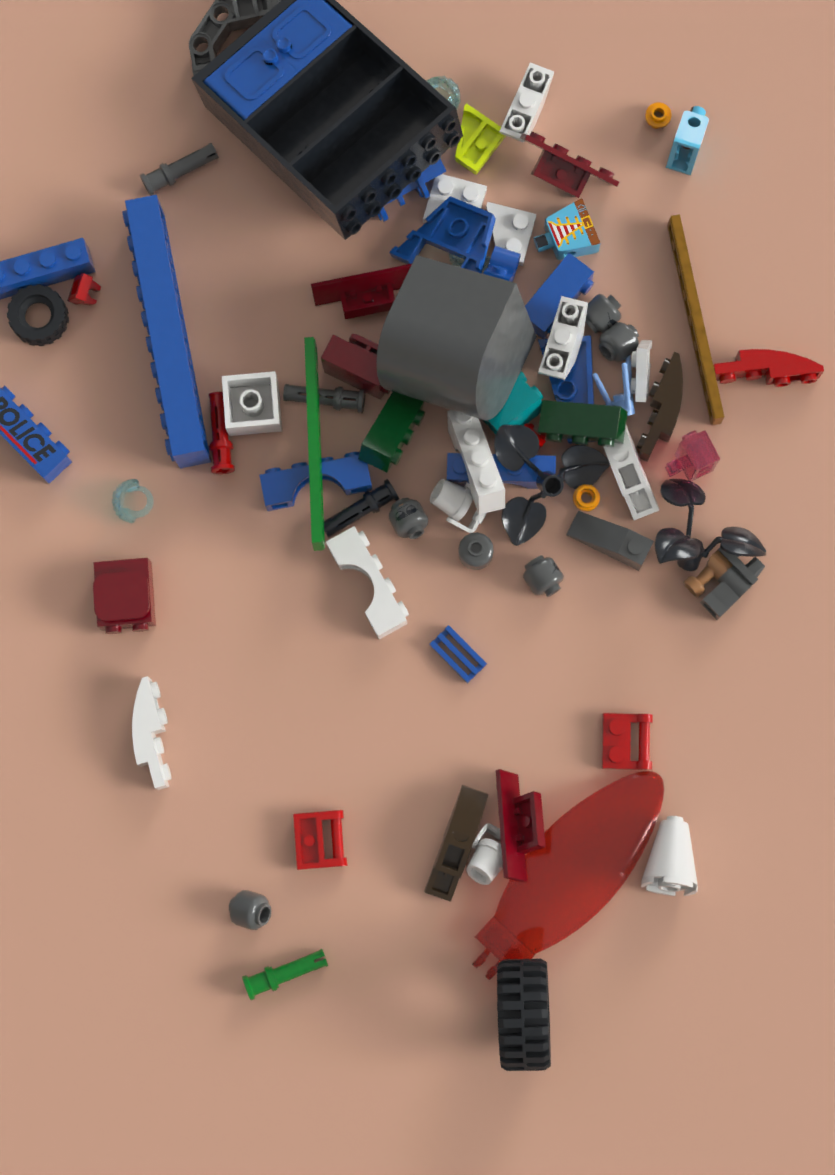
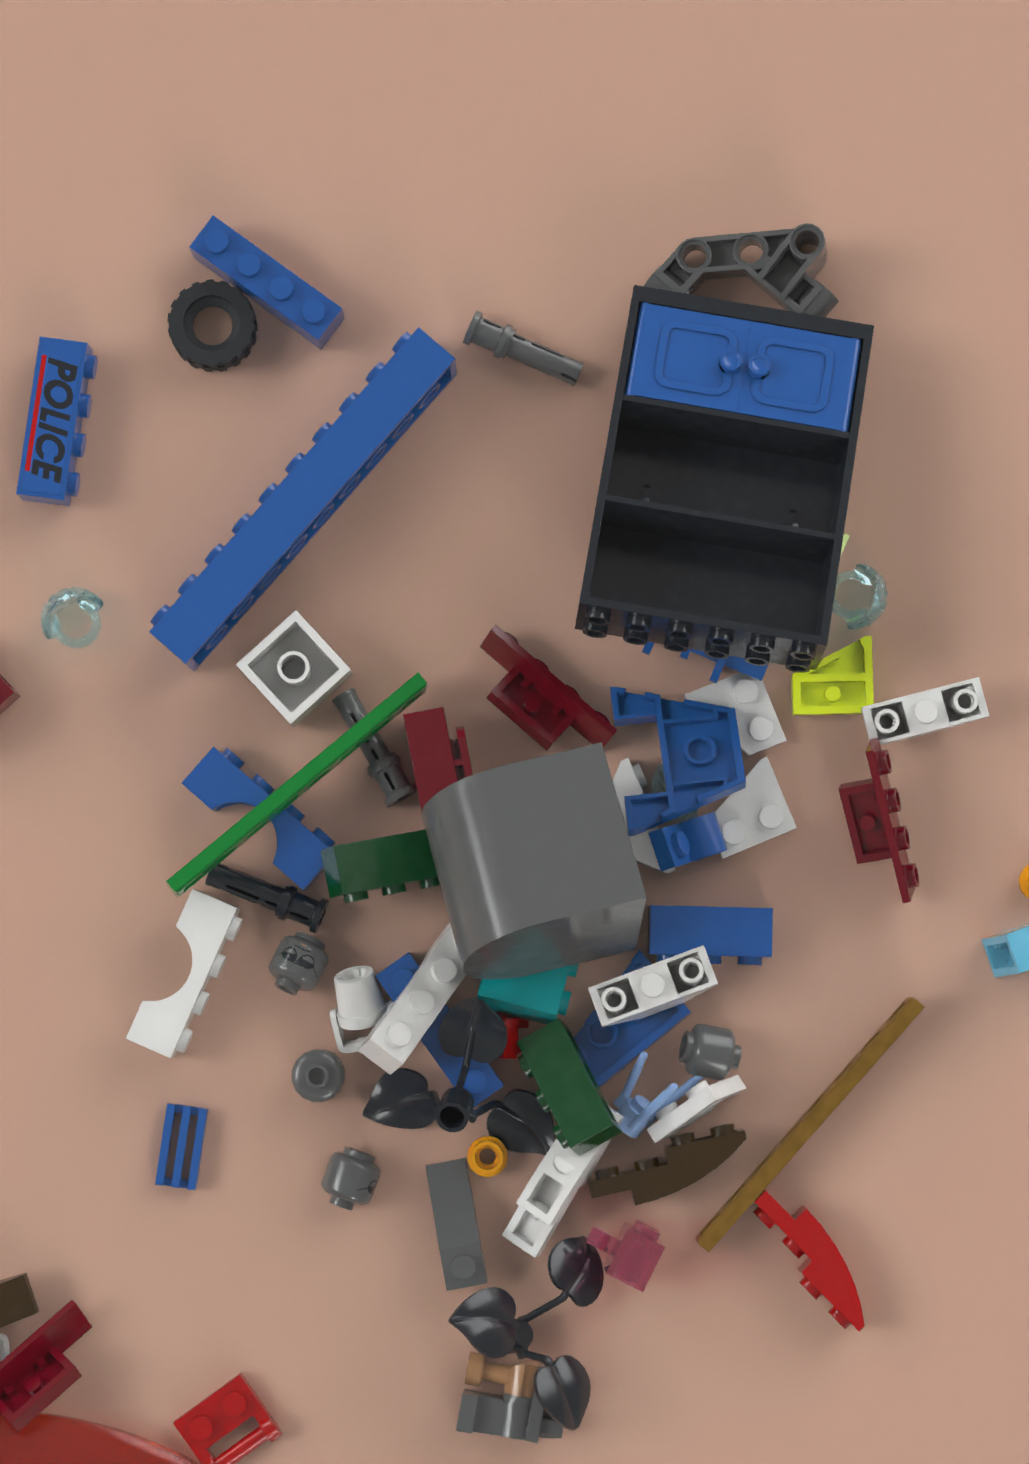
camera: 45 degrees right, 5 degrees up
(80, 288) = (282, 352): red tile -> none
(221, 445) = (219, 669): red pin -> none
(569, 232) = (802, 886): torso -> none
(602, 313) = (730, 1004): dark grey head -> none

